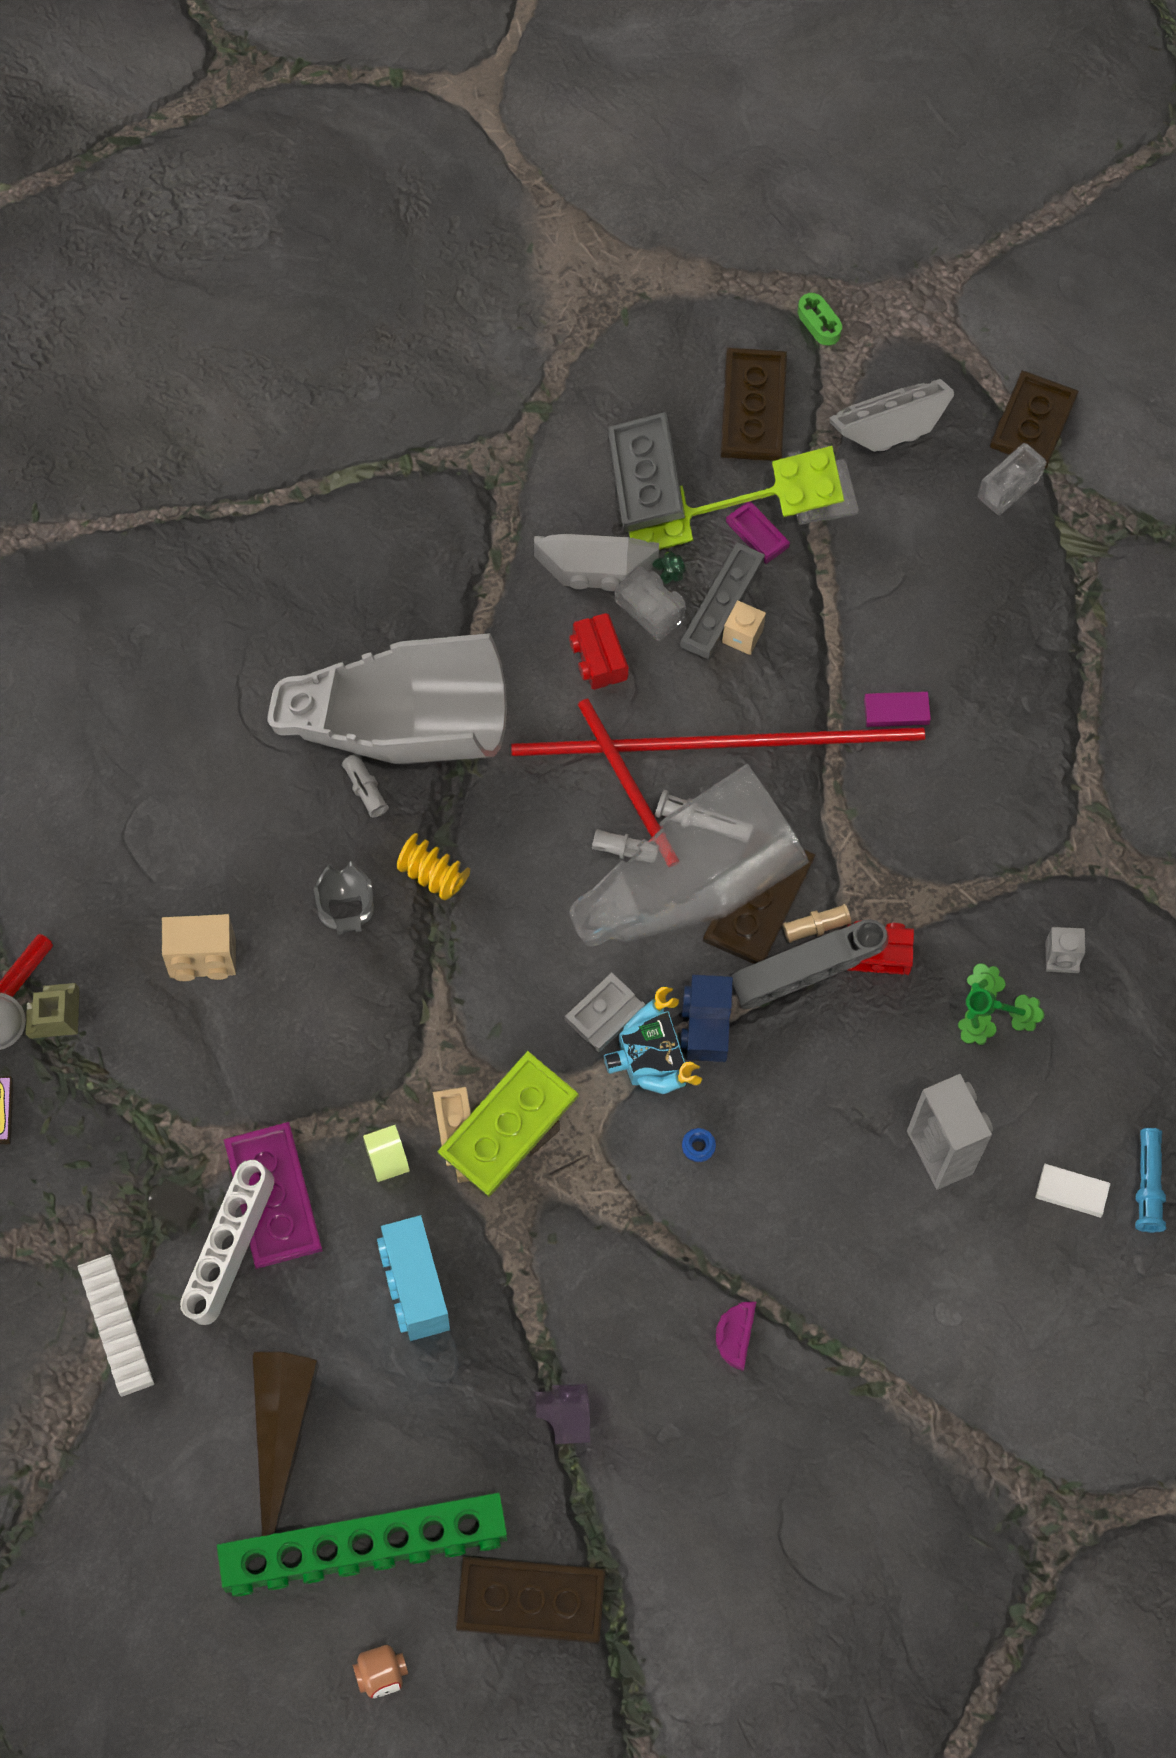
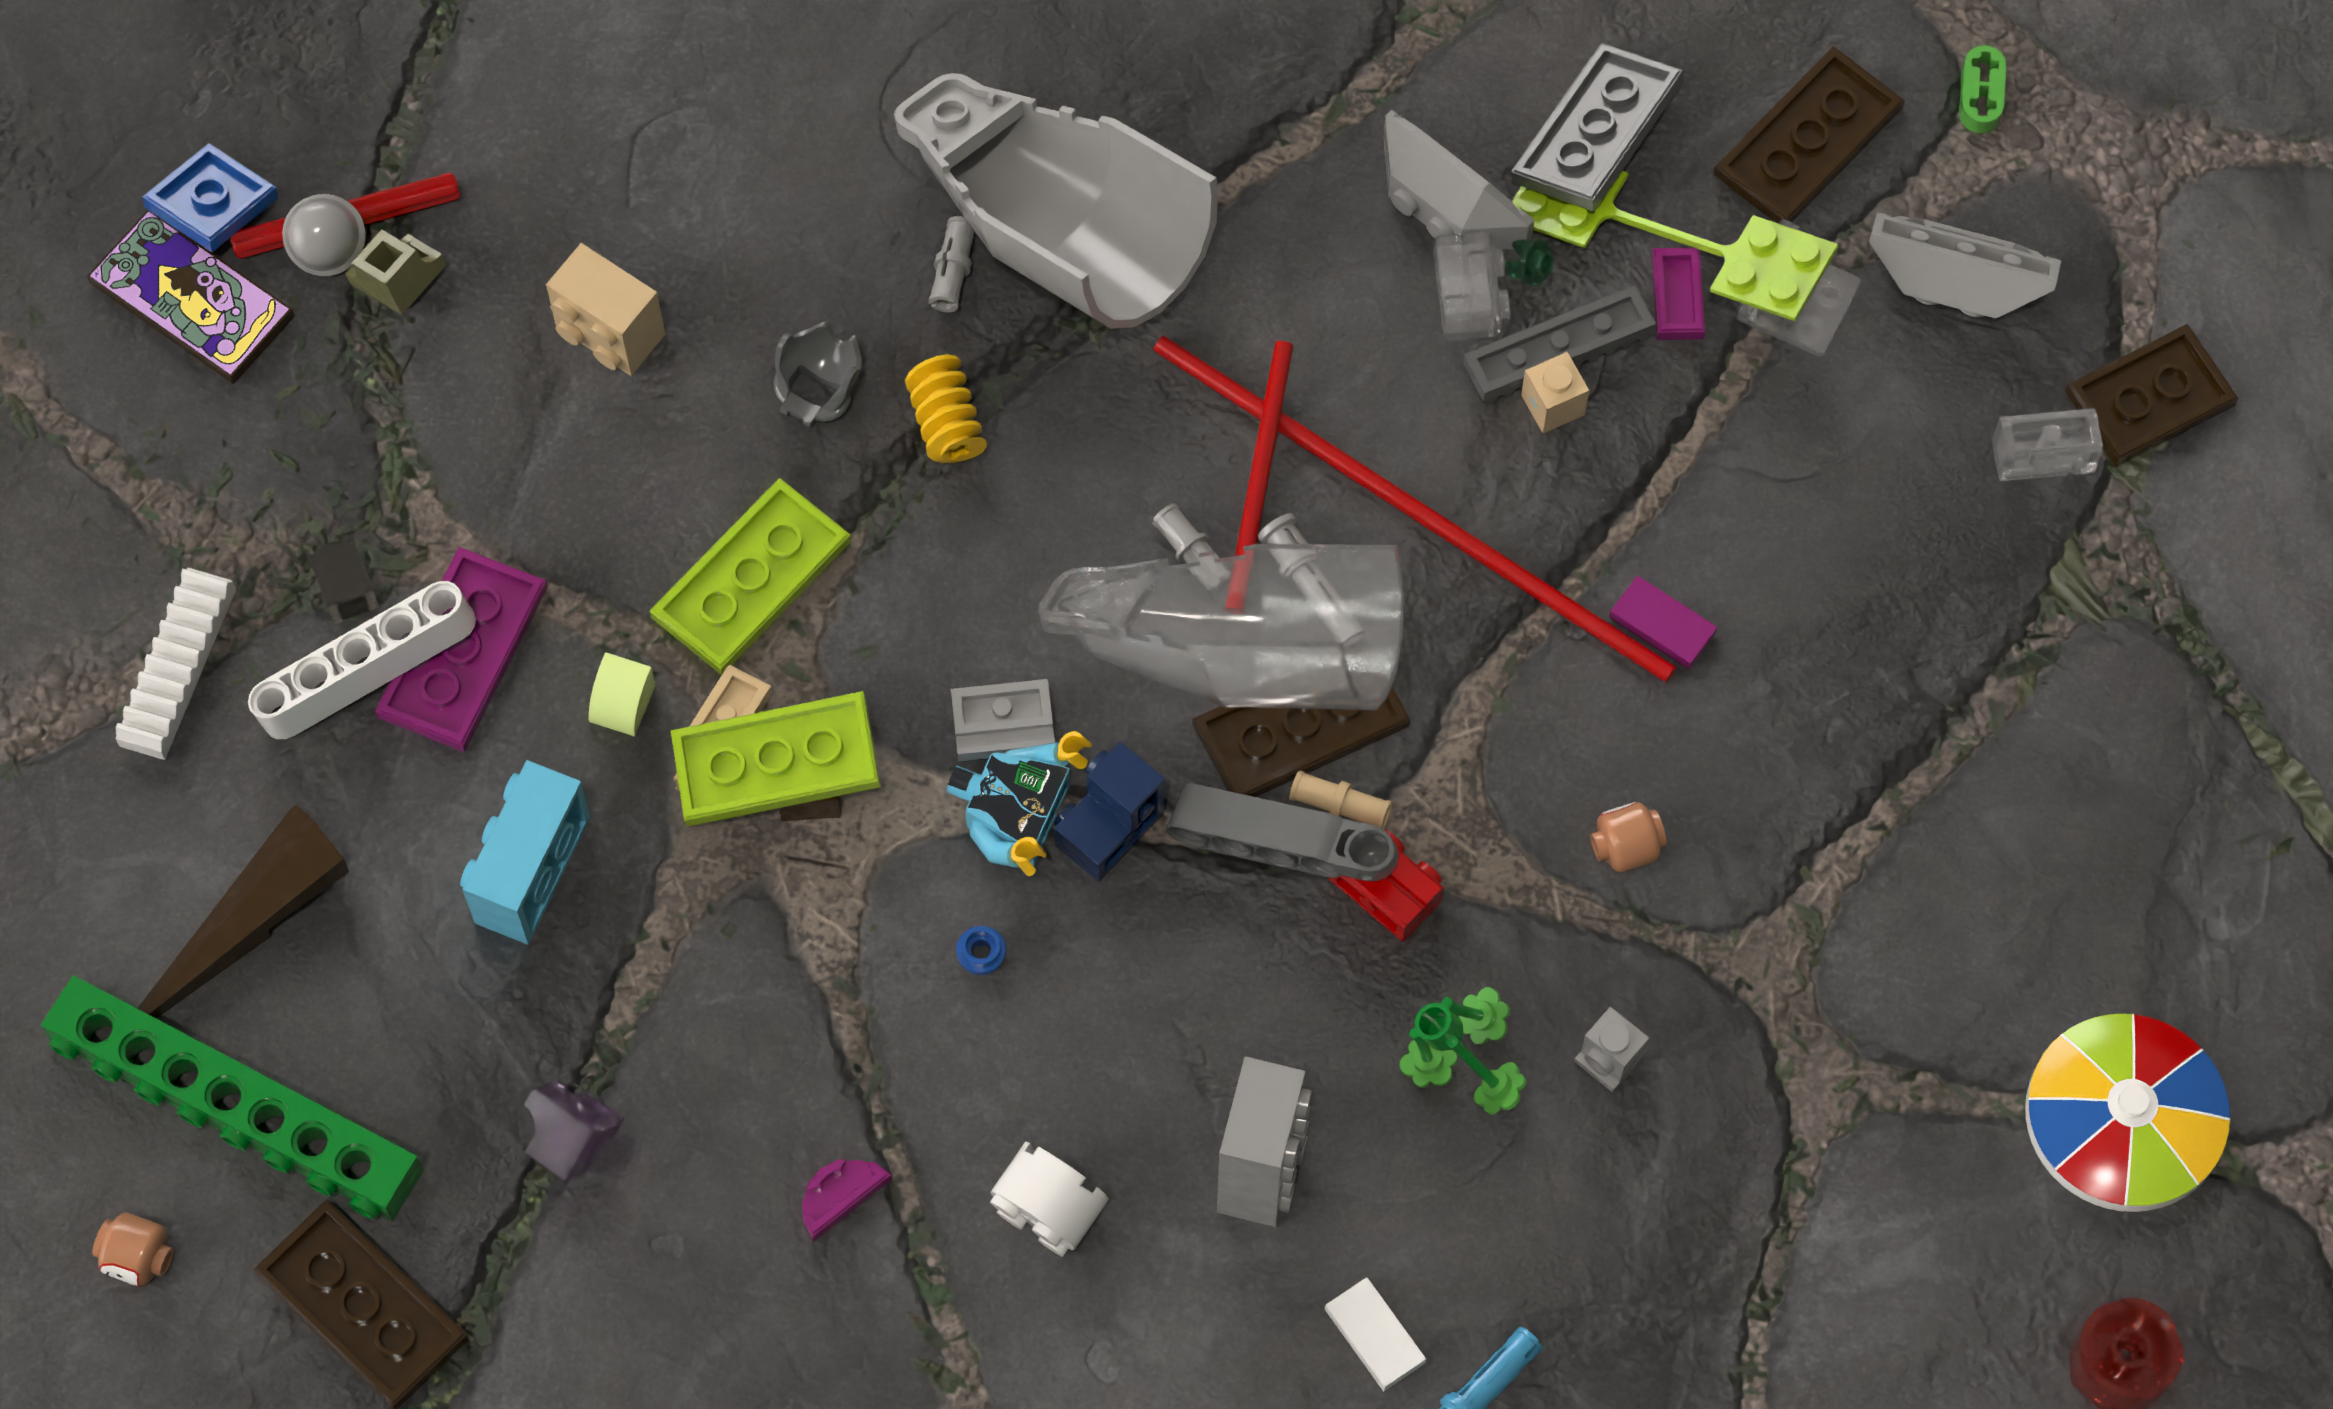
camera: 40 degrees right, 0 degrees up
(399, 1036) = (750, 576): none -> lime tile
(599, 651) = (1357, 300): red brick -> none
(854, 1249) = (1048, 1197): none -> white brick
(978, 833) = (1628, 837): none -> nougat head

